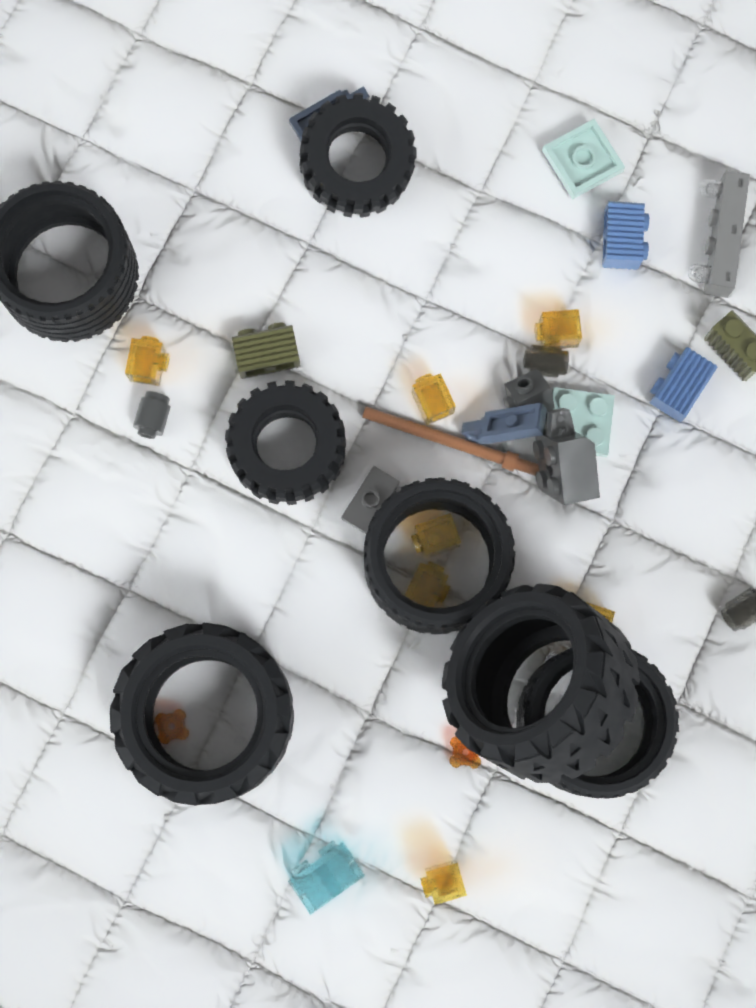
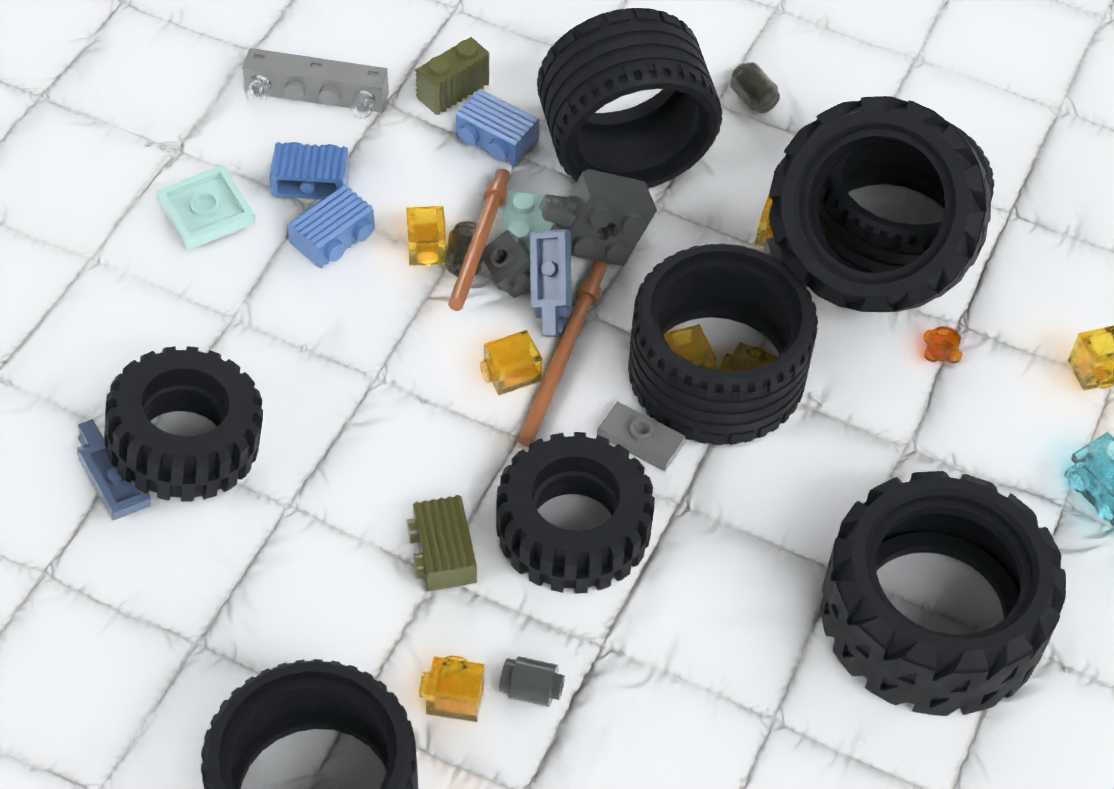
camera: 90 degrees left, 25 degrees down
(565, 256) = (332, 226): none -> medium blue brick
(603, 383) = (494, 198): none -> nougat bar
(684, 481) = (617, 57): none -> black tyre

